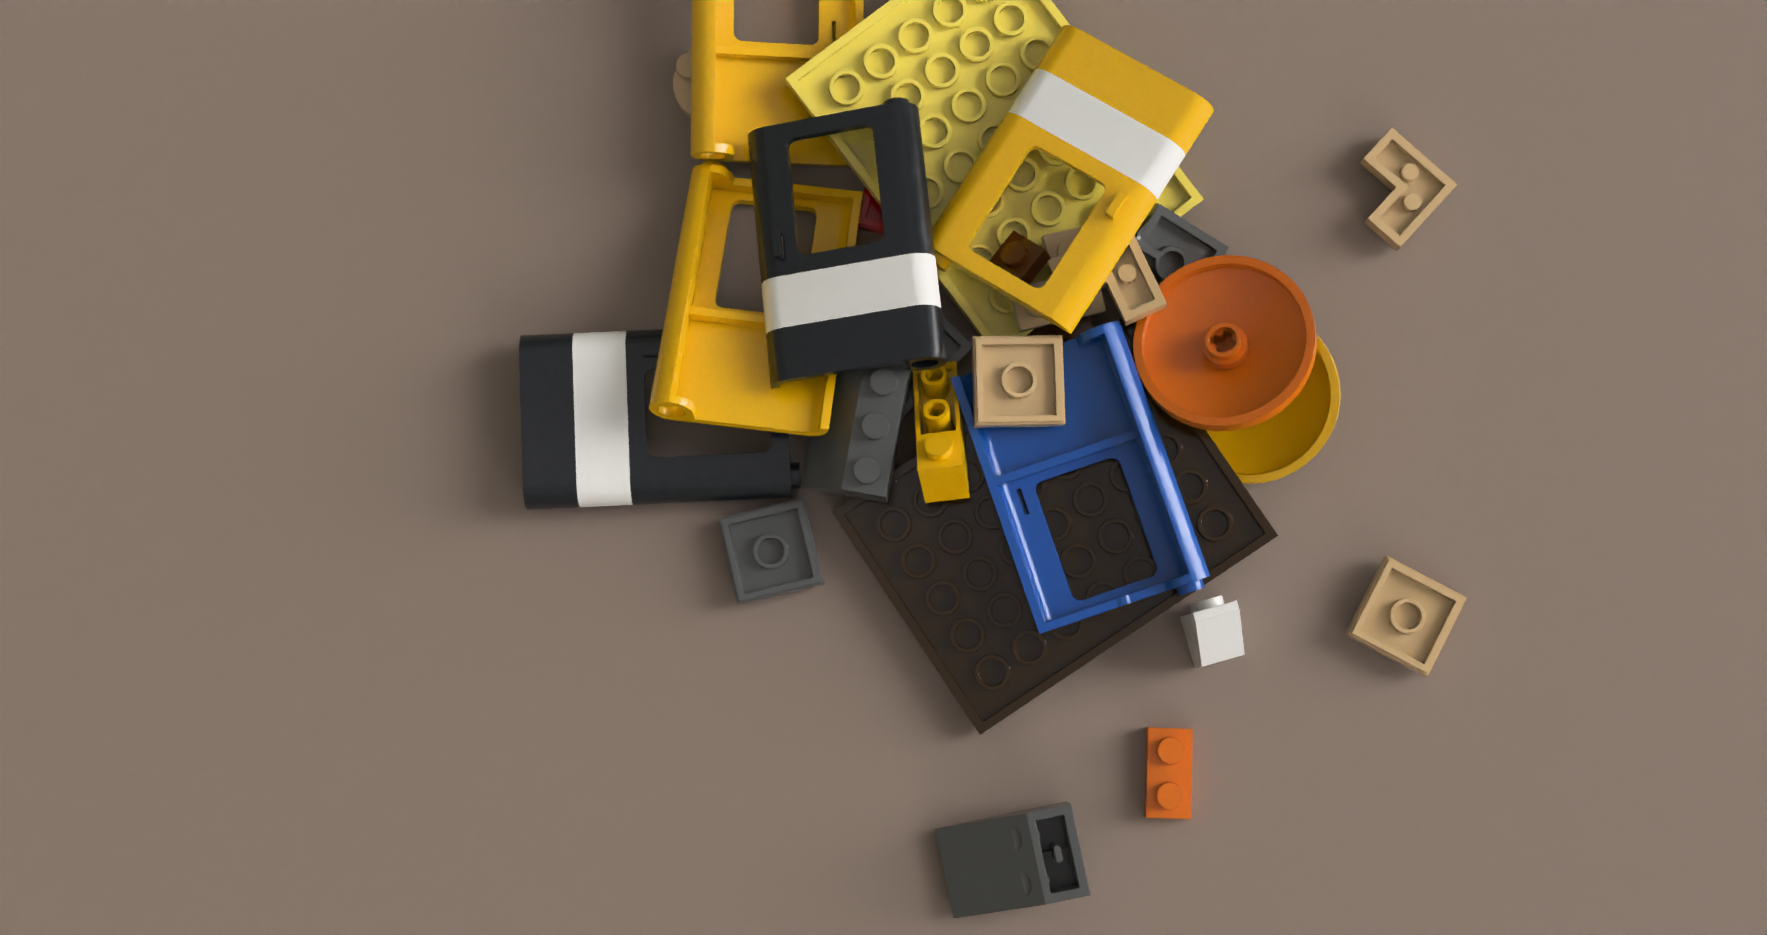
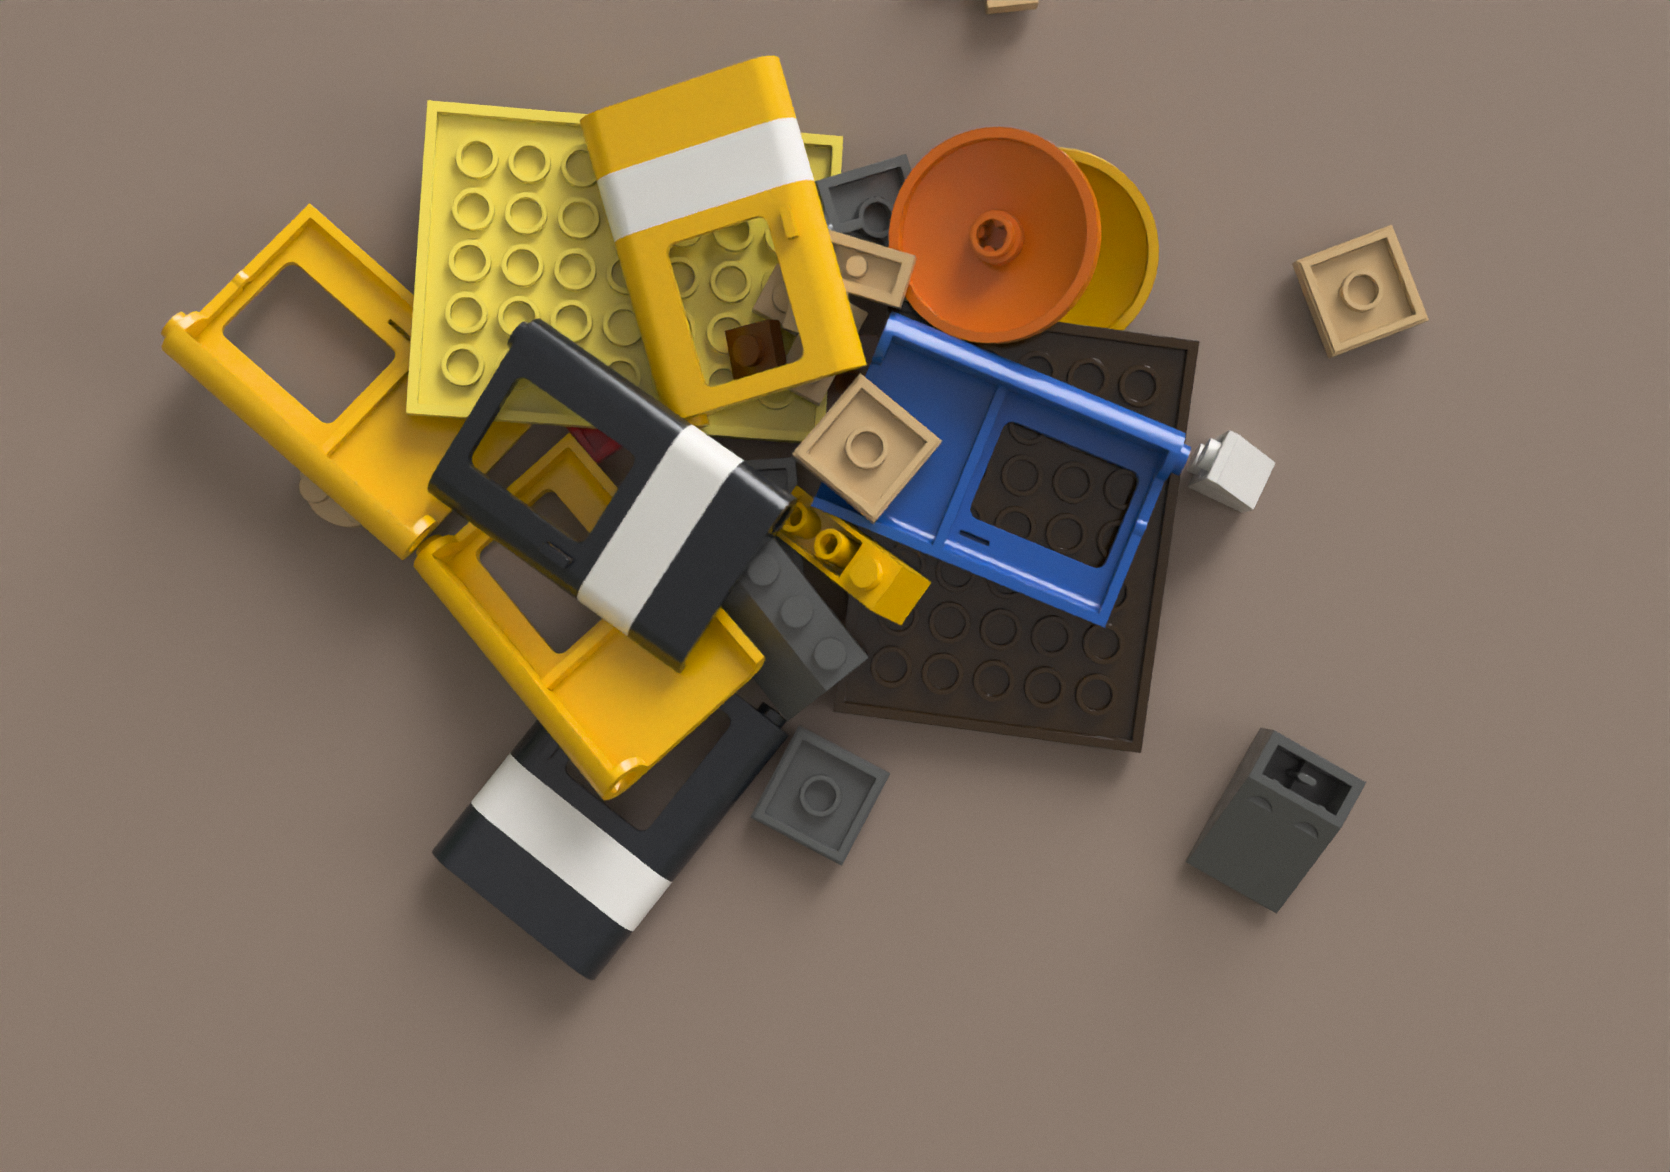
camera: 55 degrees left, 5 degrees up
(1168, 773) = (1313, 617): orange plate -> none

